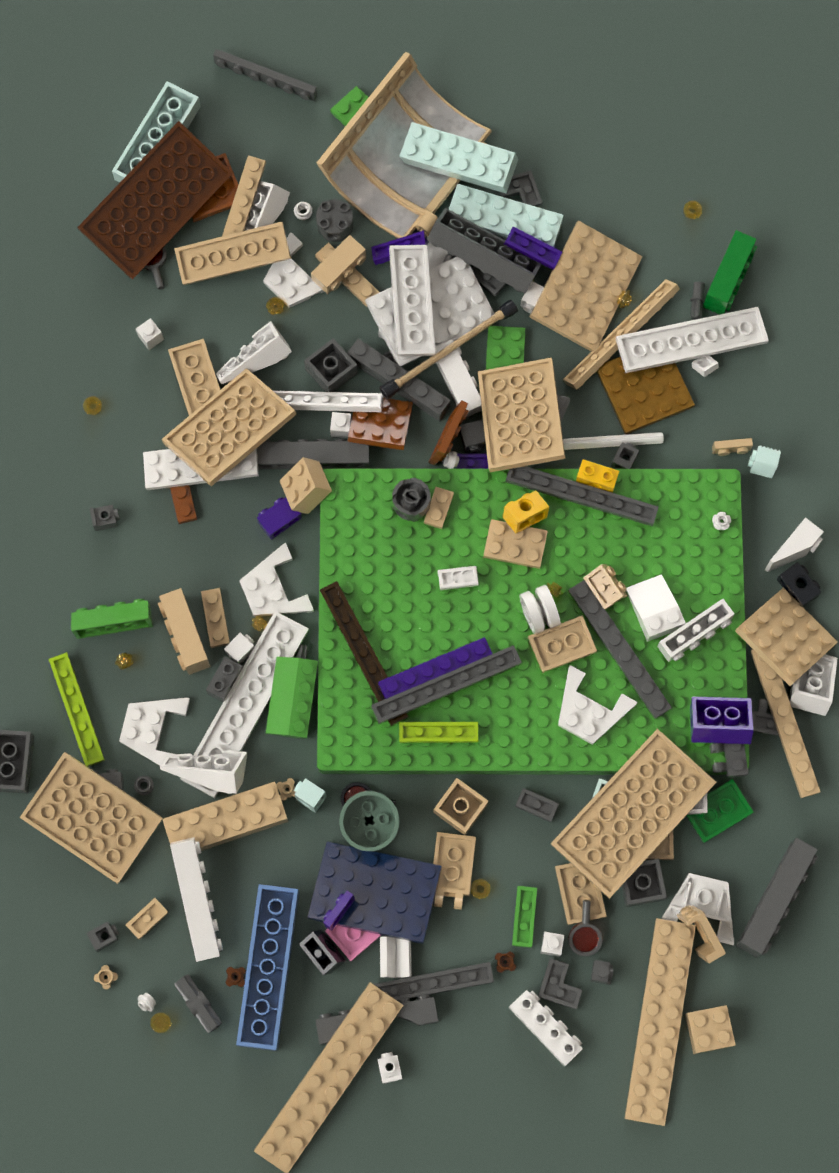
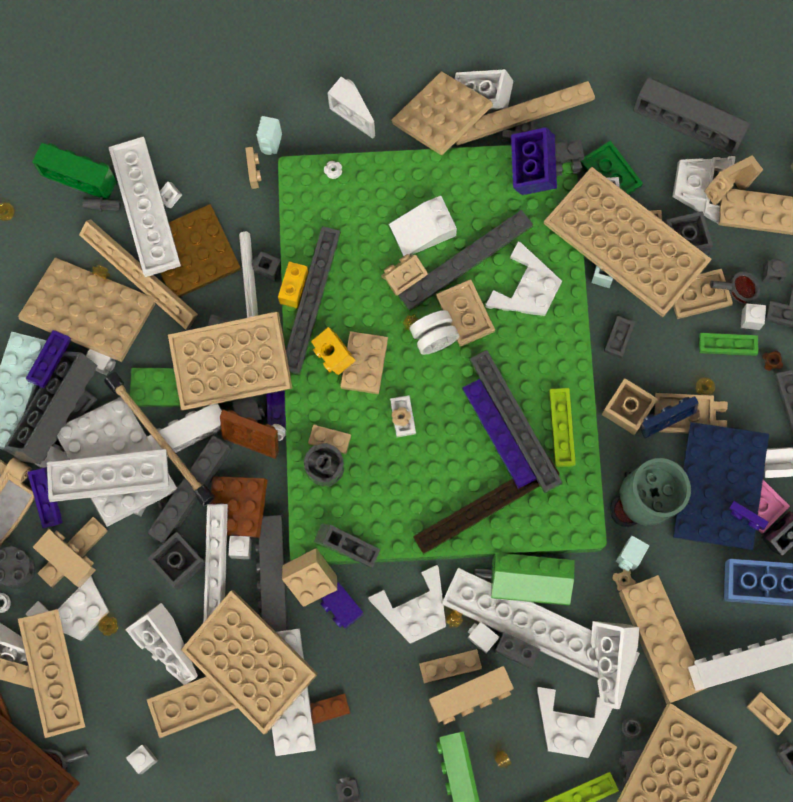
camera: 90 degrees left, 0 degrees up
(332, 518) = (346, 545): none -> dark grey slope
(445, 840) = (669, 416): none -> dark blue plate
(455, 578) = (401, 421): none -> tan plate
(695, 630) = (444, 185): white brick -> none
(801, 595) = (384, 114): black brick -> none

